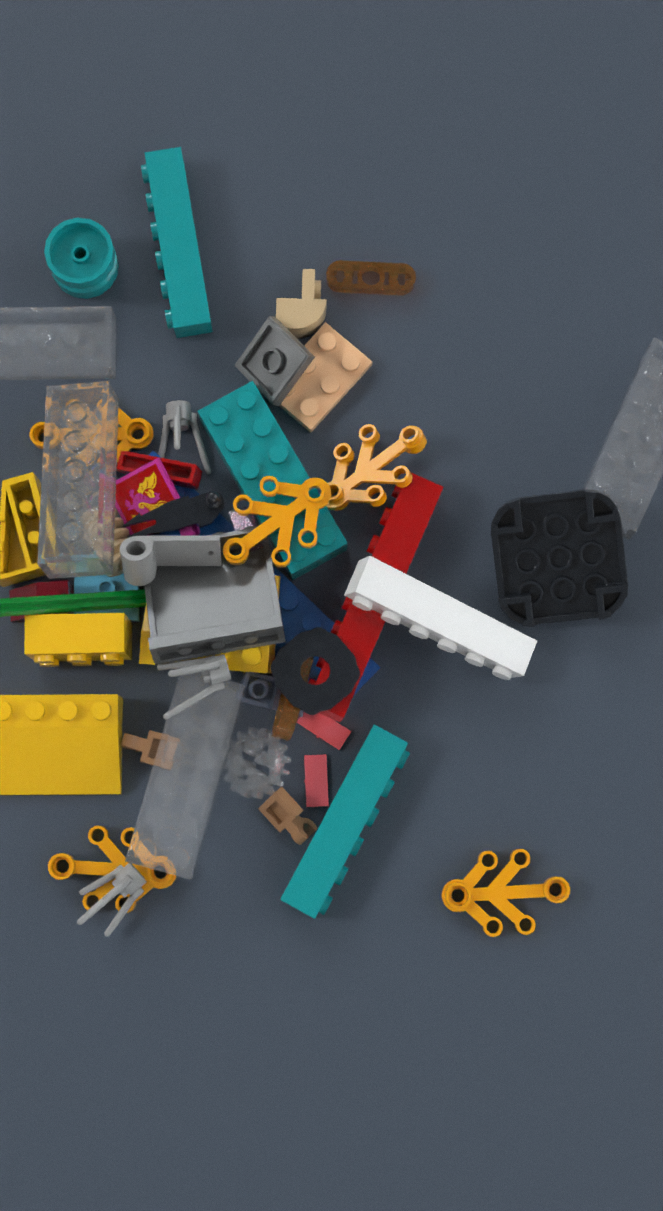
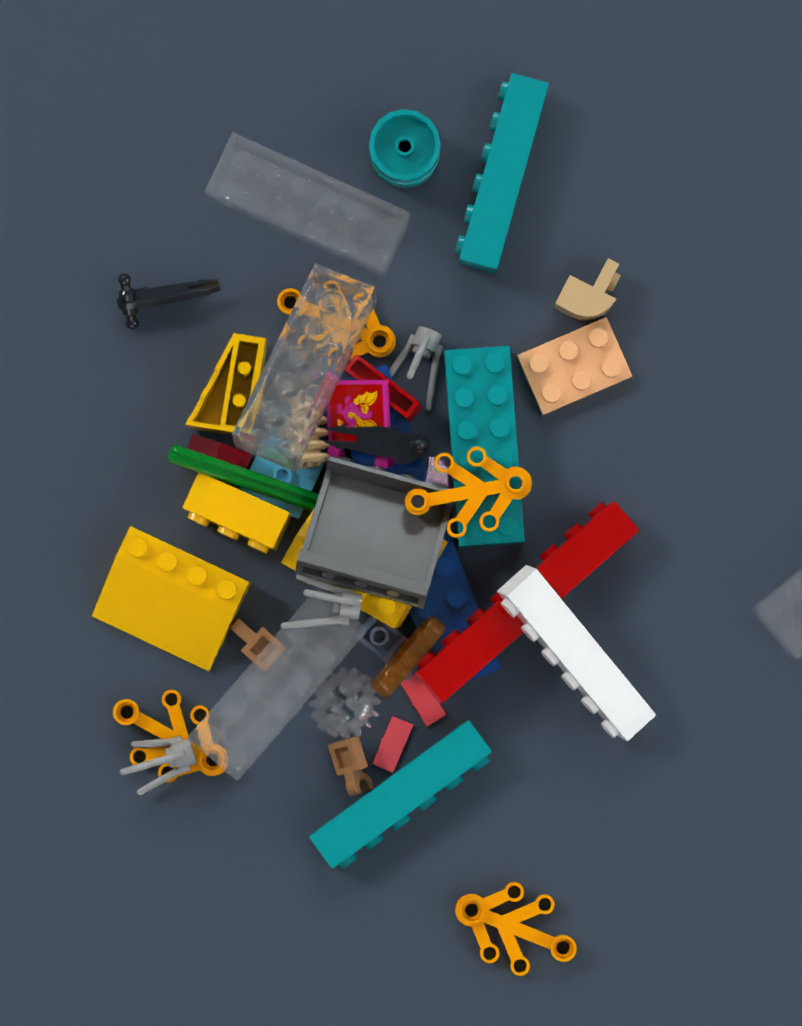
camera: 30 degrees right, 5 degrees up
(144, 553) = (331, 465): light grey door -> none
(274, 360) = (538, 335): dark grey plate -> none
(321, 697) = (437, 675): black piece -> none
(369, 469) = (578, 478): light orange plant -> none
(380, 268) = (688, 311): clear orange beam -> none
(559, 557) = (714, 647): black tile -> none

